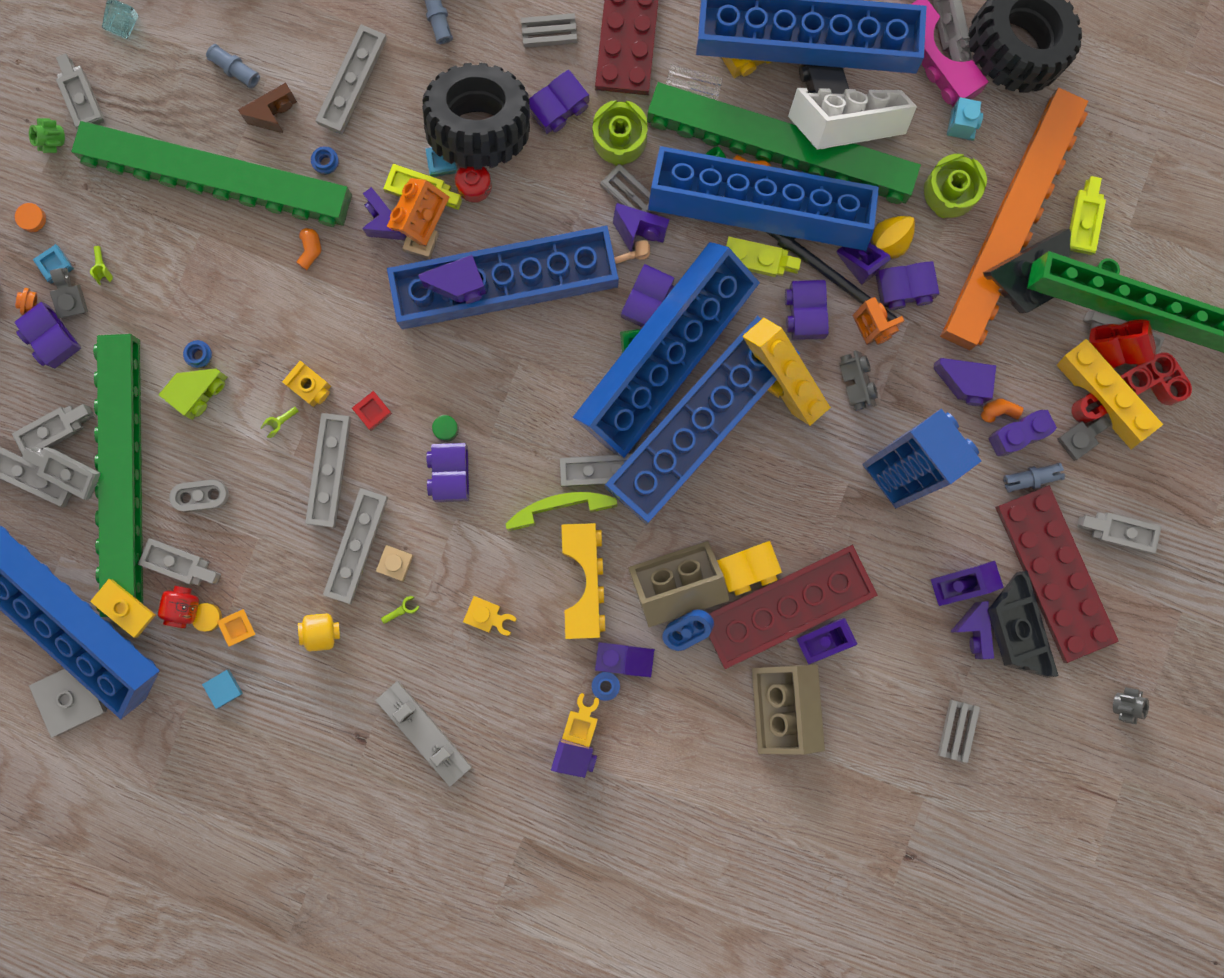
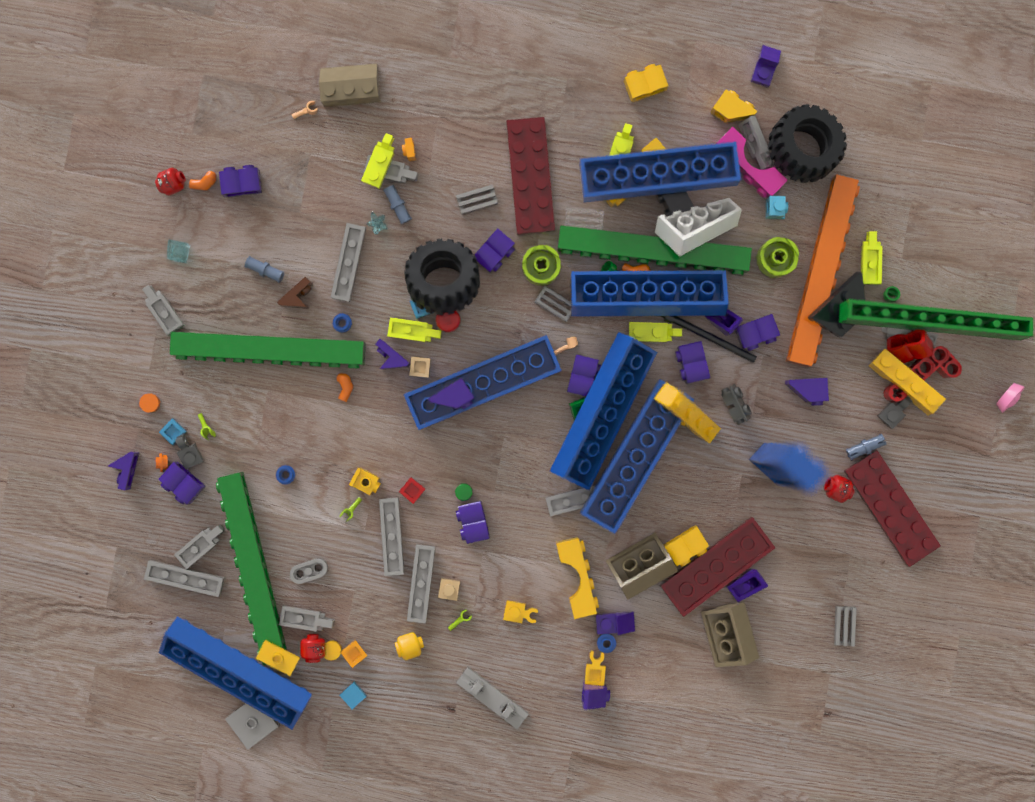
camera: 10 degrees left, 5 degrees up
(46, 135) = (148, 345): bright green gear -> none
(63, 471) = (215, 574): light grey hinge -> none
(192, 390) = (286, 502): lime slope -> none
(403, 34) = (377, 223): none -> clear light blue plant
(418, 210) = (415, 349): orange bracket -> none
(526, 518) = (530, 542): lime slope -> none
(635, 222) = (561, 326): dark purple slope -> none
(690, 630) = (654, 596): blue plate -> none
(873, 323) = (738, 364): orange bracket -> none
(894, 235) = (741, 298): yellow piece -> none
(967, 583) = (834, 527): dark purple slope -> none
(978, 621) = (845, 552): dark purple slope -> none
(985, 528) = (839, 488): none -> red head
(999, 407) = (834, 403): orange arm -> none
(1021, 628) = (874, 550): black wing -> none
(1023, 432) = (855, 416): dark purple brick -> none
(1122, 531) = (931, 471): light grey hinge -> none
(1130, 705) = (955, 587): dark grey gear -> none

